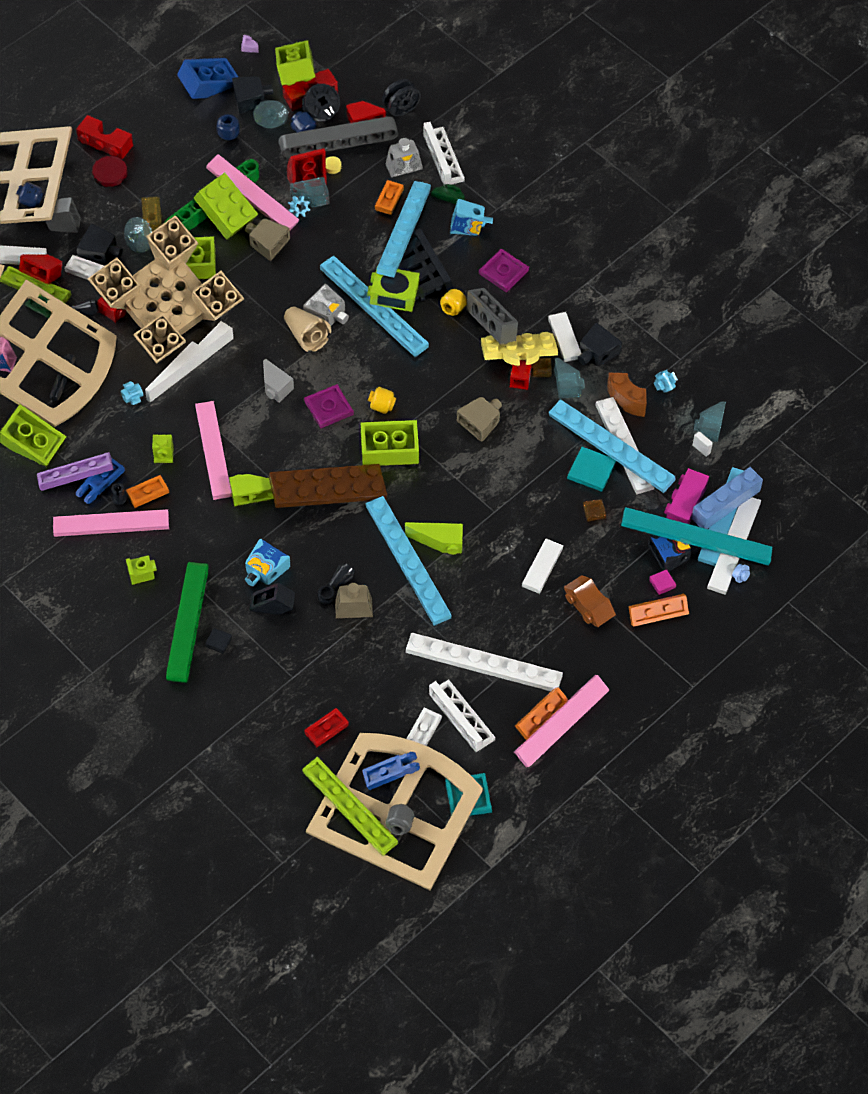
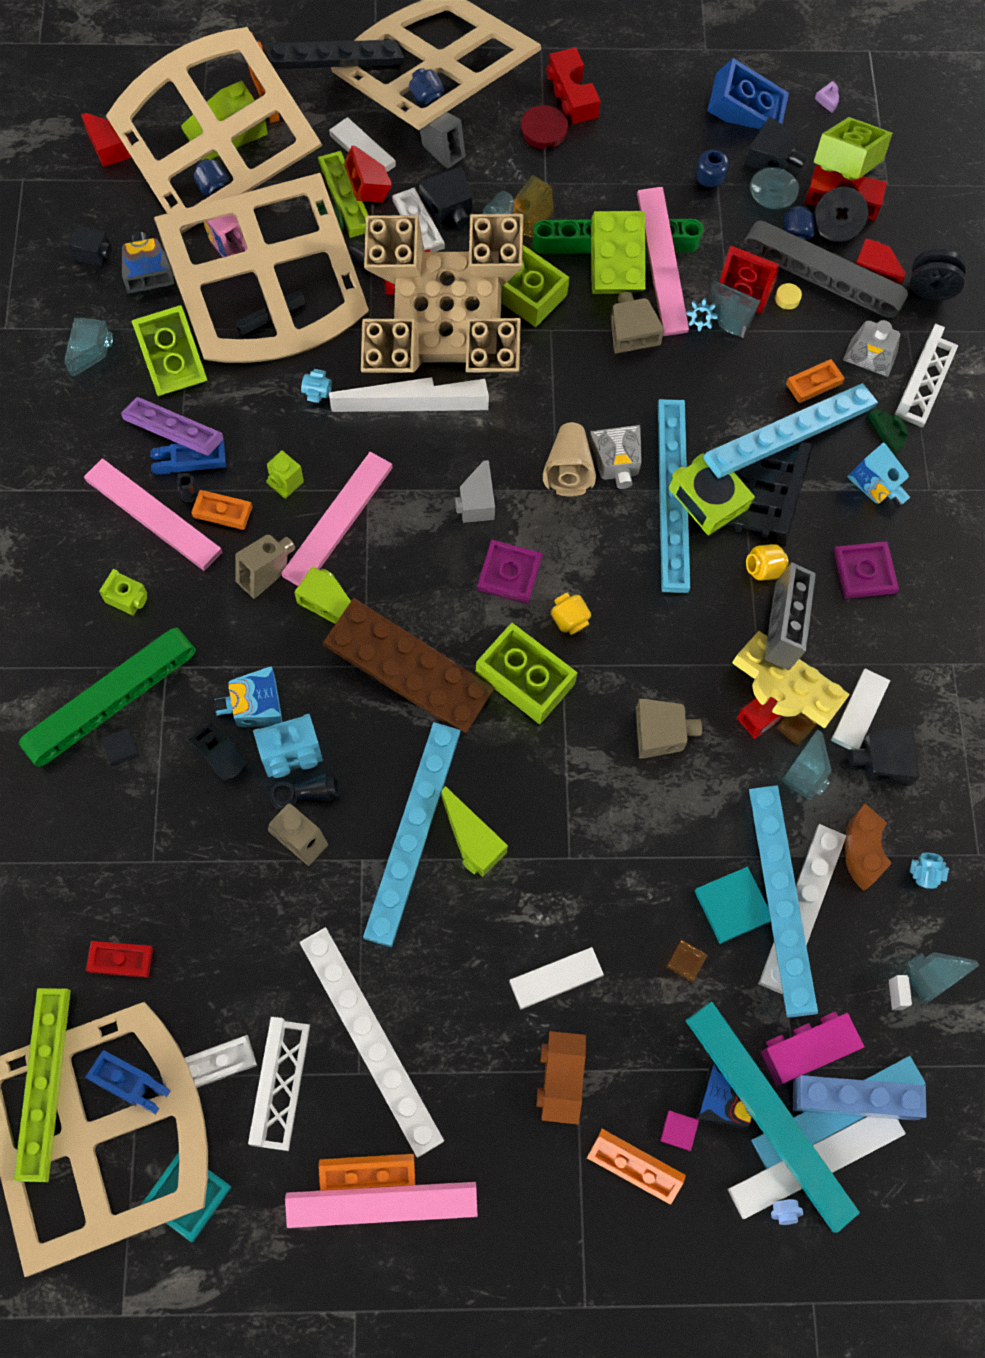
camera: 40 degrees right, 10 degrees up
(200, 489) = (262, 563): none -> dark tan torso
(308, 566) = (288, 746): none -> medium azure hinge
(399, 819) = (70, 1158): dark grey head -> none

